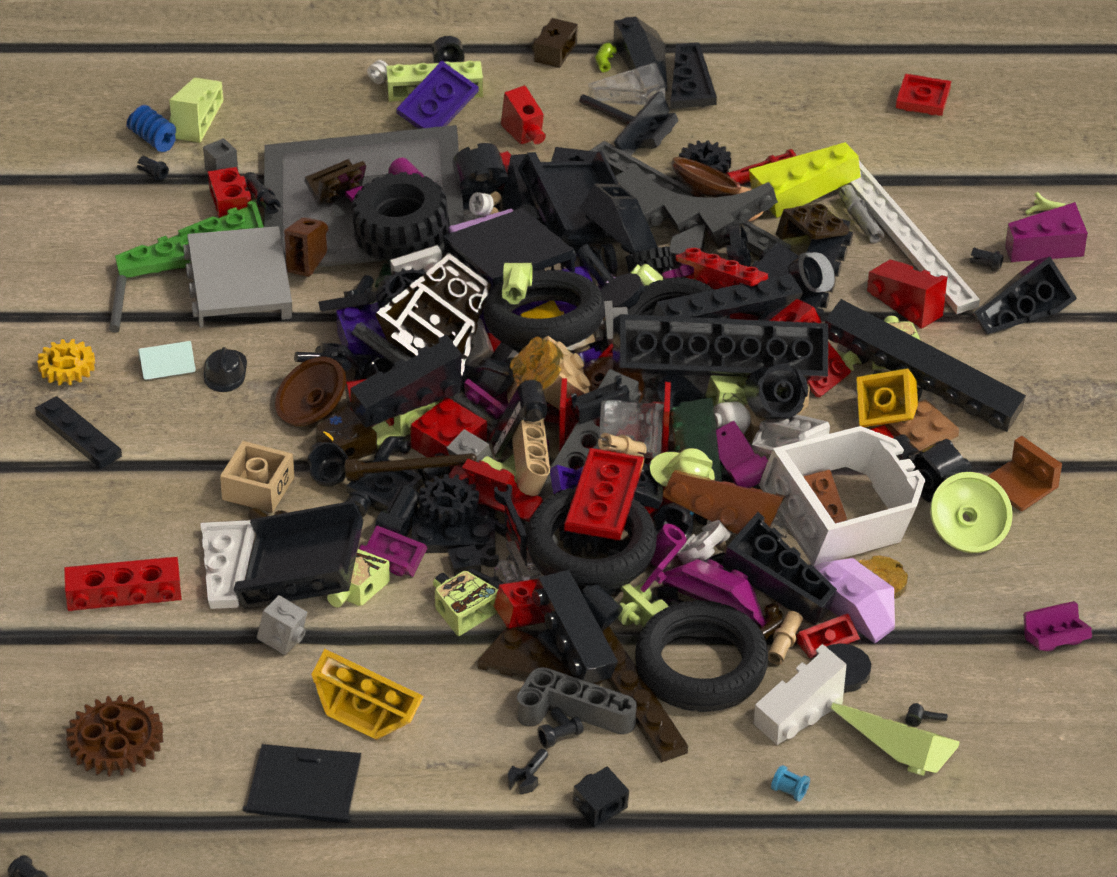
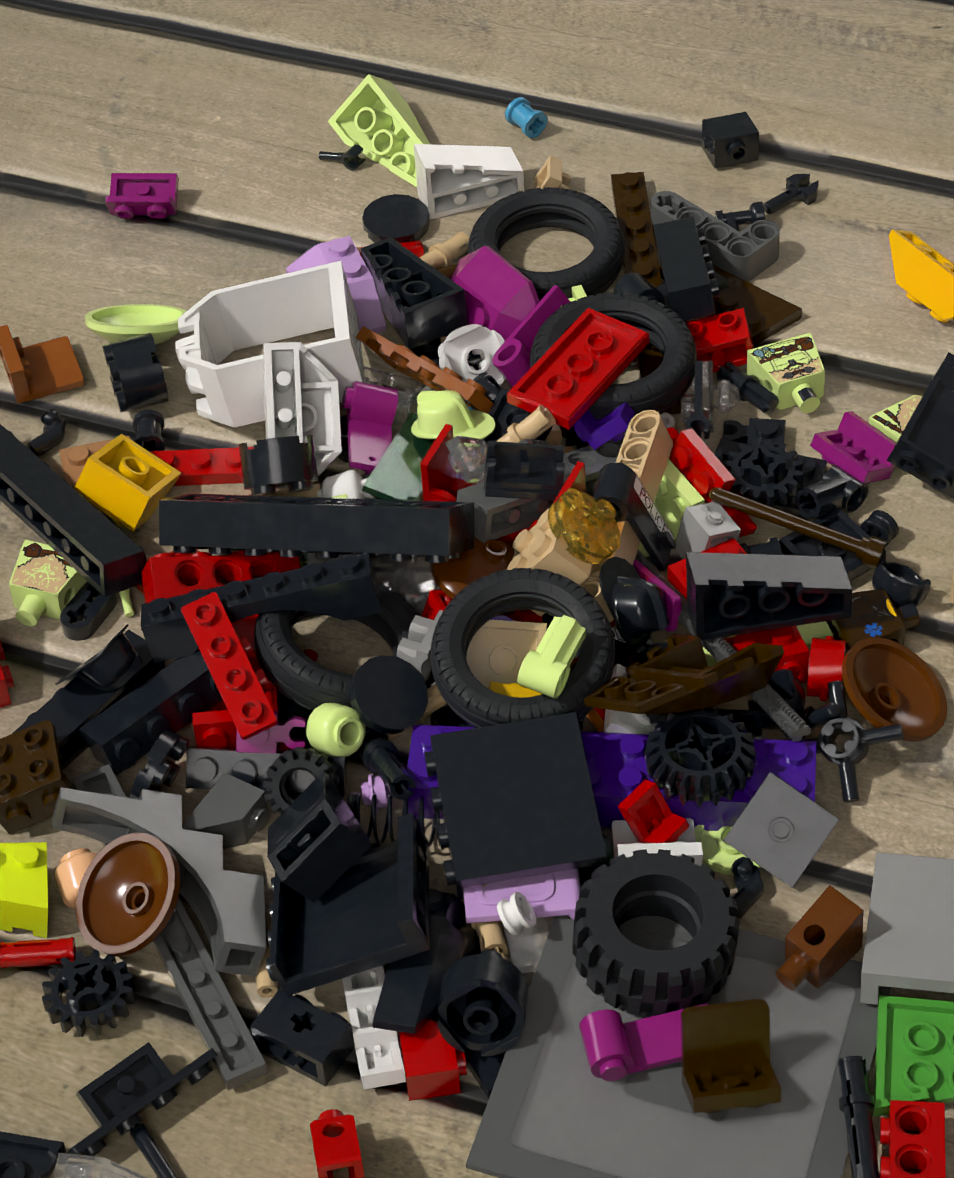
camera: 155 degrees left, 5 degrees up
(734, 723) = (551, 175): none -> tan tile
(975, 441) = (52, 433): none -> black arm

